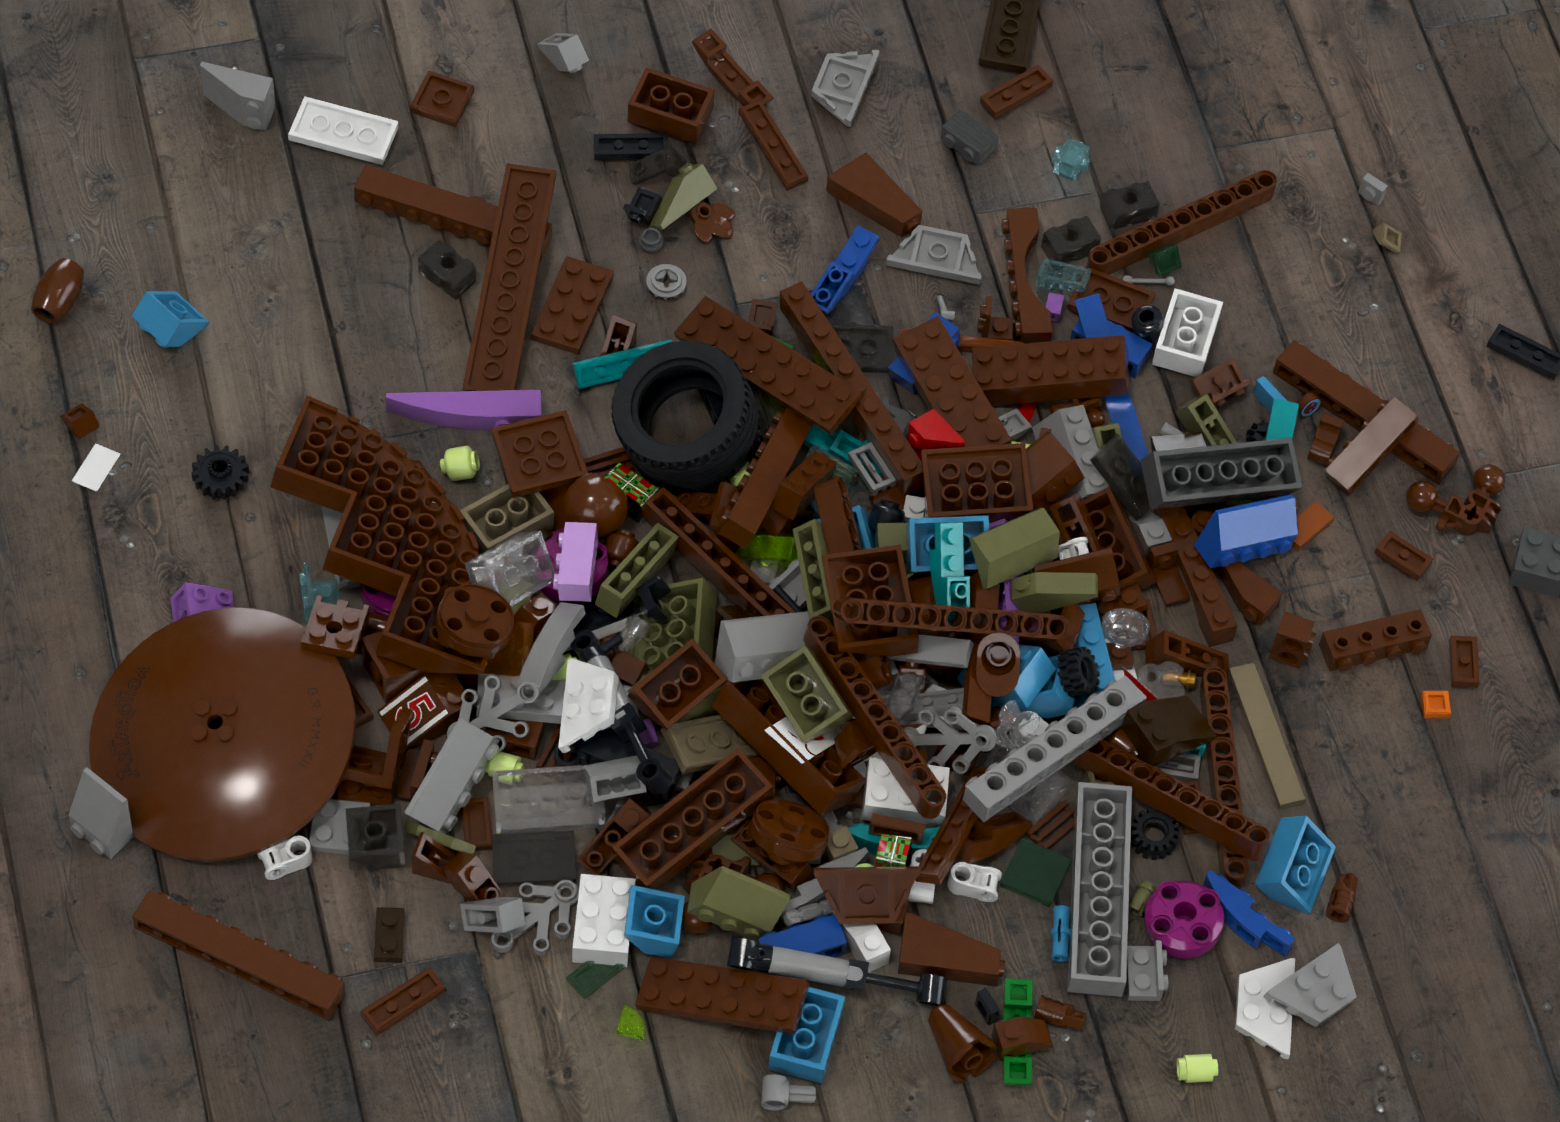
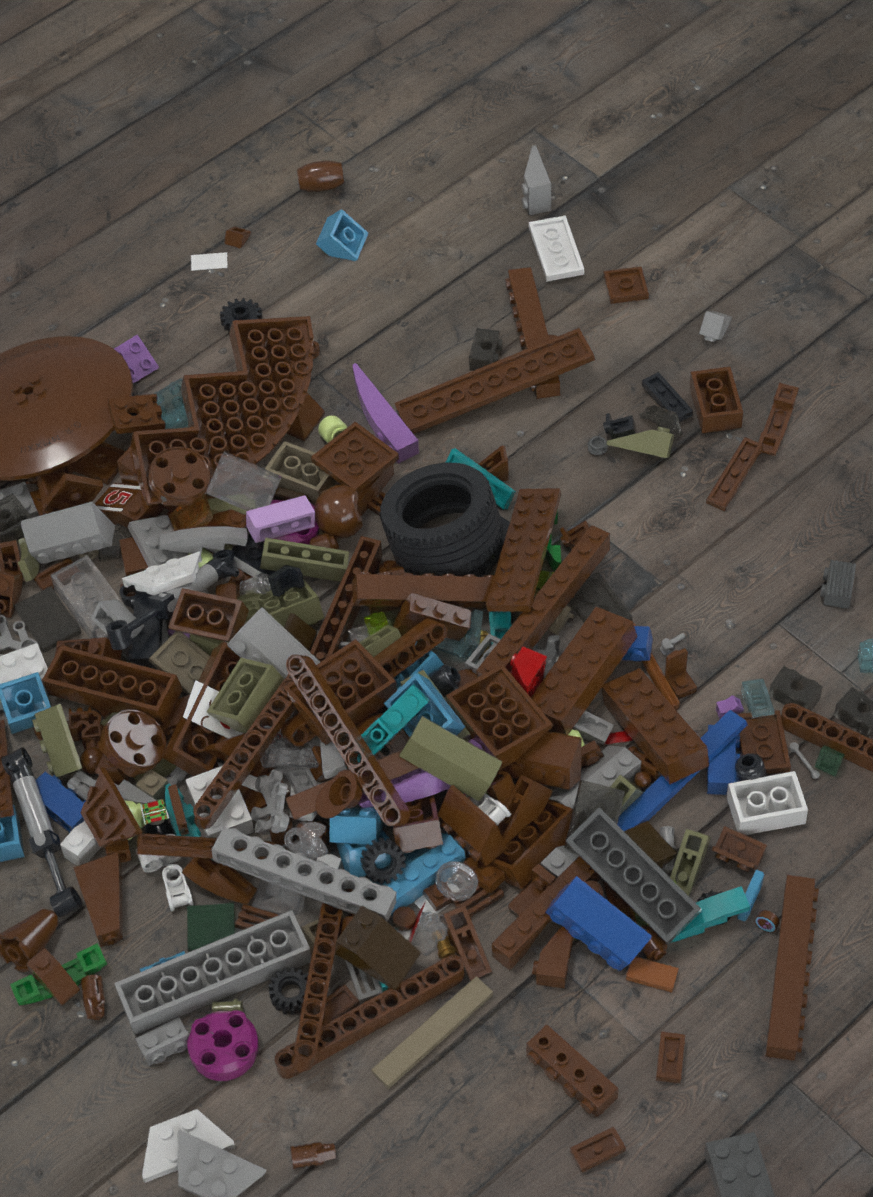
camera: 70 degrees right, 5 degrees down
(489, 716) = (148, 536): light grey plant -> none
(503, 761) = (108, 565): yellowish green brick -> none
(572, 305) = (511, 430): reddish brown plate -> none
(635, 487) = (372, 525): piece -> none
(676, 279) = (572, 464): light grey gear -> none
(714, 223) = (641, 473): reddish brown plate -> none
(844, 82) = (826, 488): light grey wing -> none
(845, 270) = (653, 566): blue slope -> none
(874, 194) = (740, 549): reddish brown slope -> none
(937, 254) = (718, 614): light grey wing -> none
(987, 1006) = (72, 945): black tile -> none
(1032, 317) = (701, 699): reddish brown arch -> none
(1052, 590) = (433, 803): olive slope -> none
(1197, 1068) = (94, 1115): yellowish green brick -> none
(1243, 921) = (250, 1084): blue slope -> none
(1293, 640) = (523, 1004): reddish brown brick -> none
(1295, 863) = (320, 1106): dark azure slope -> none
(1325, 438) = (741, 949): reddish brown leg -> none
(1371, 445) = (751, 979): brick -> none
(1435, 704) = (544, 1147): orange tile -> none
(1487, 481) = (736, 1045): reddish brown piece -> none

